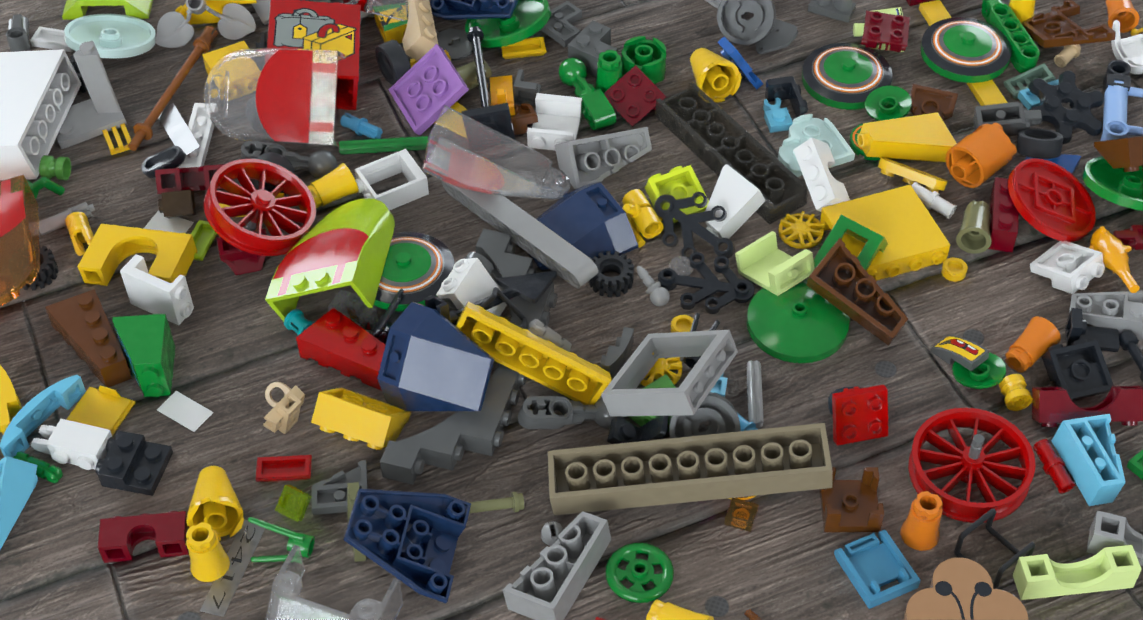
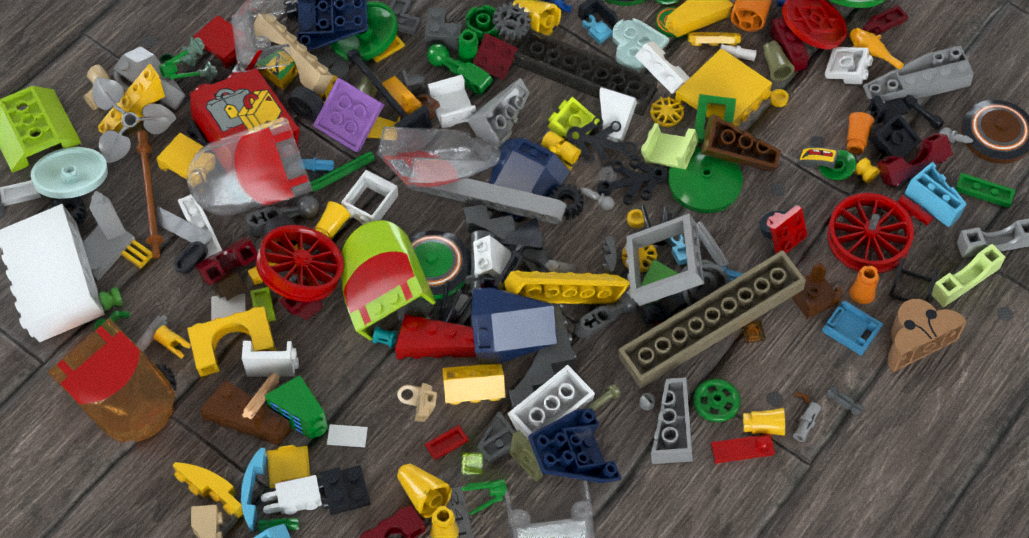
camera: 30 degrees left, 10 degrees up
(103, 321) = (259, 398): none -> light nougat axle
(437, 469) = (551, 402): none -> white slope
(673, 63) = (511, 21): none -> dark grey gear

